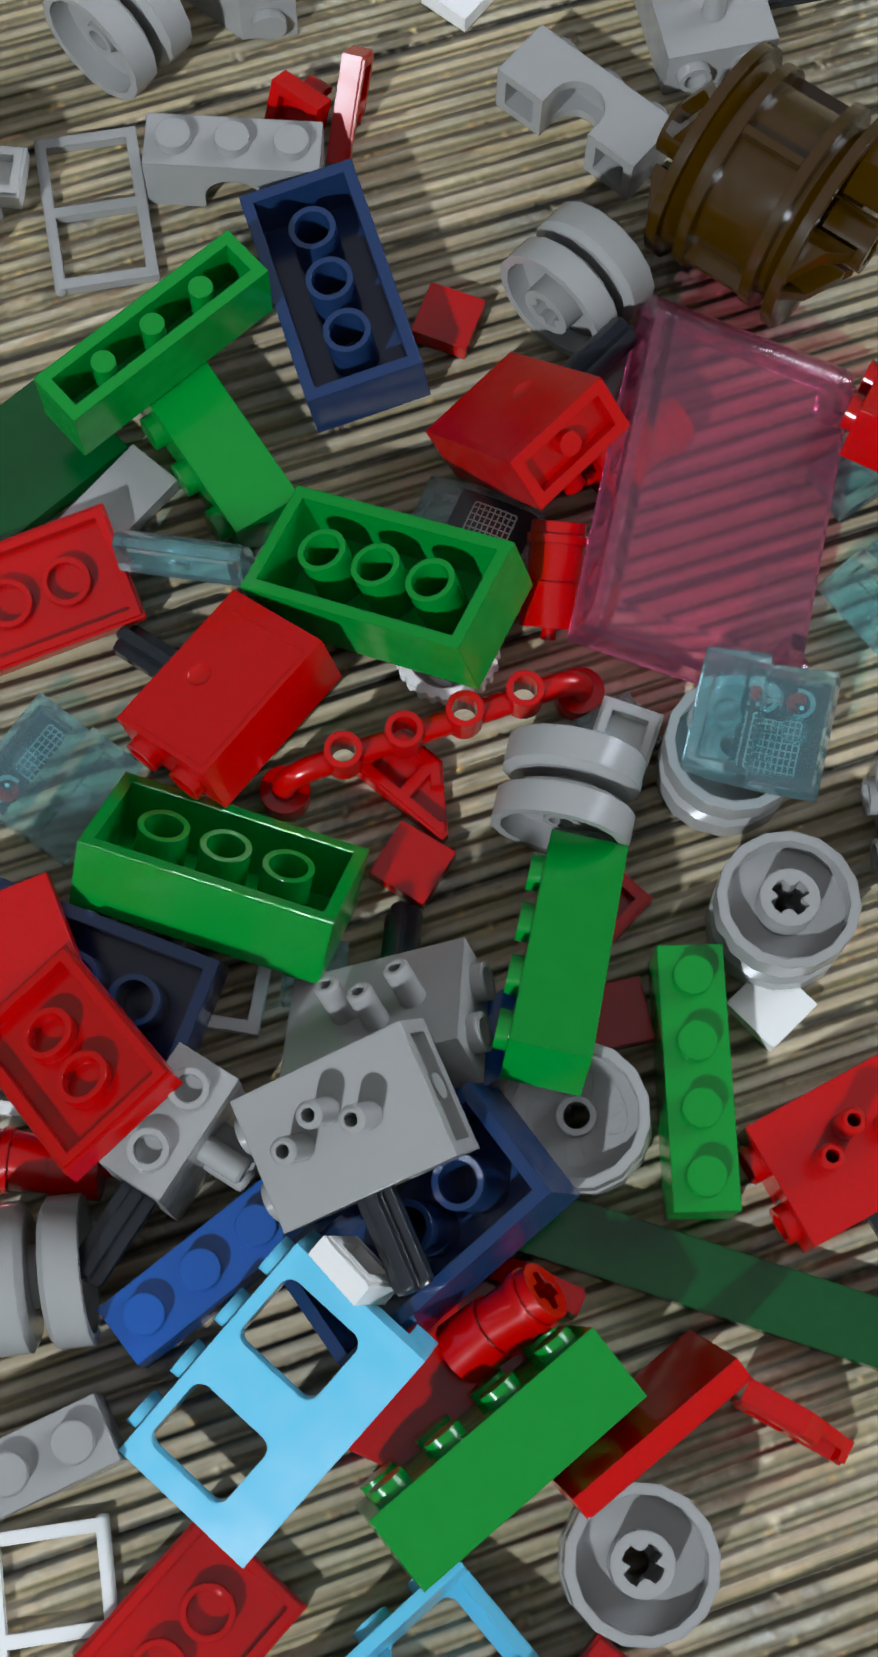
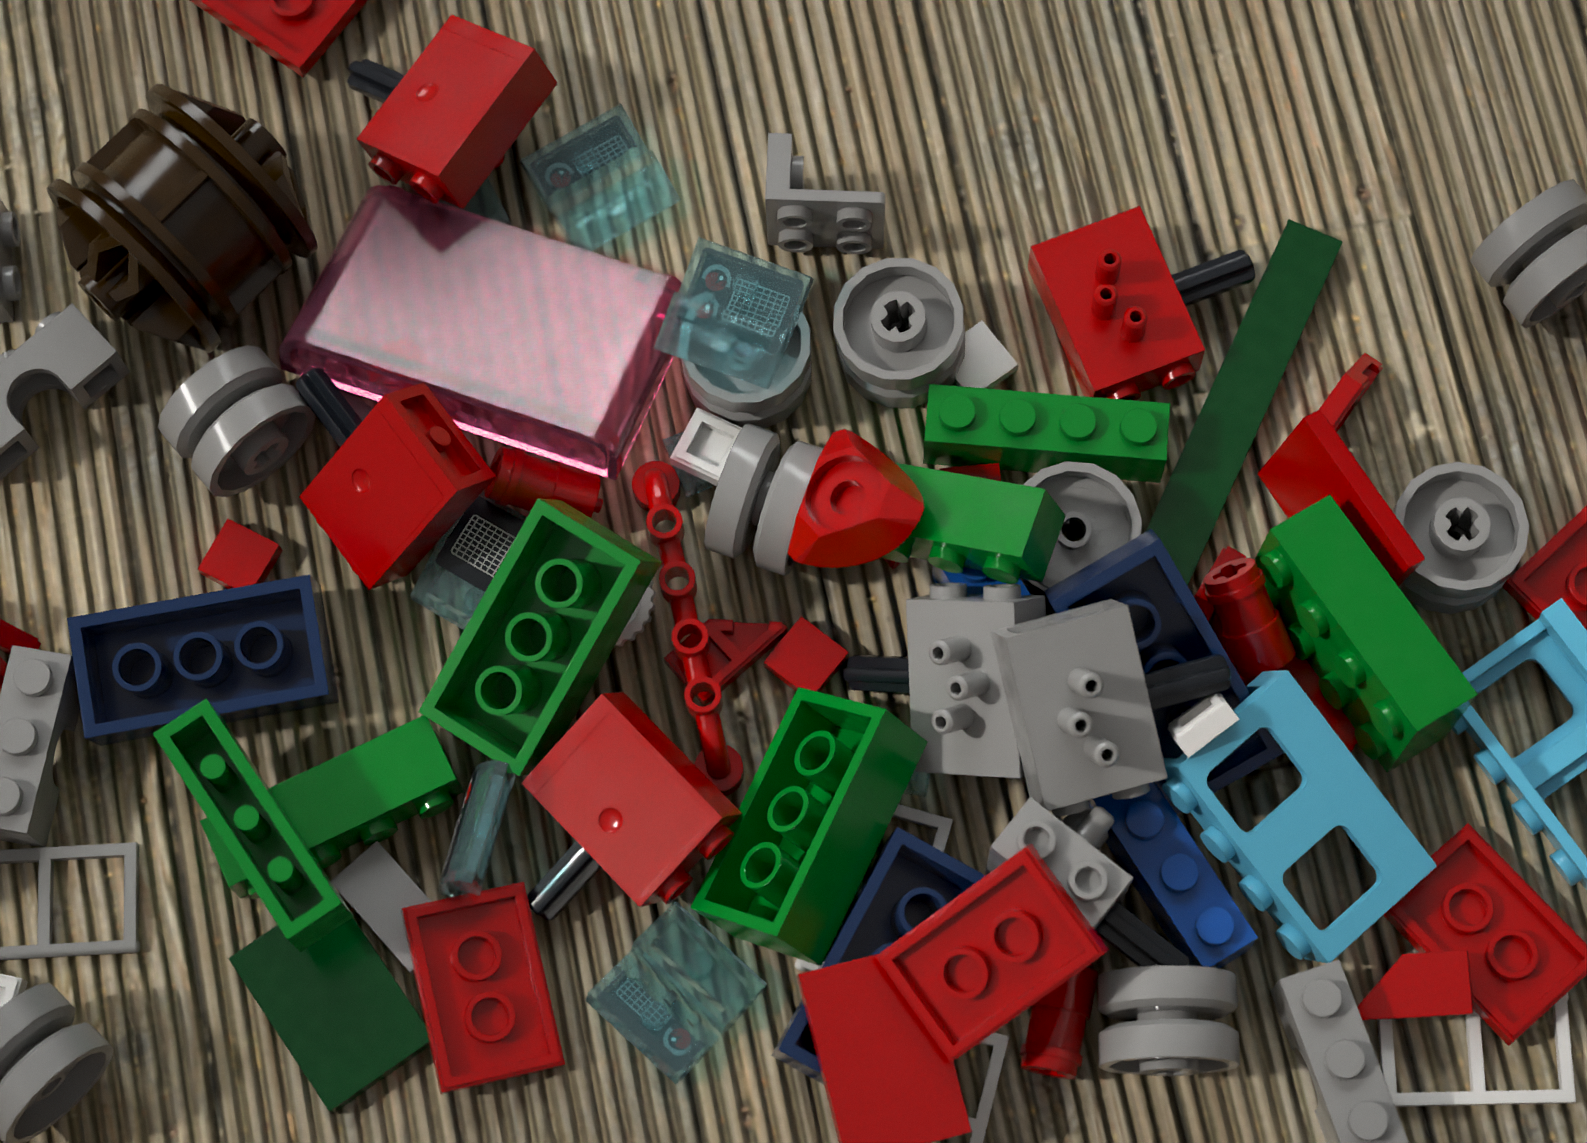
camera: 75 degrees left, 0 degrees up
(107, 1564) = (1422, 987): none -> red tile
(560, 866) = (853, 506): none -> red hat

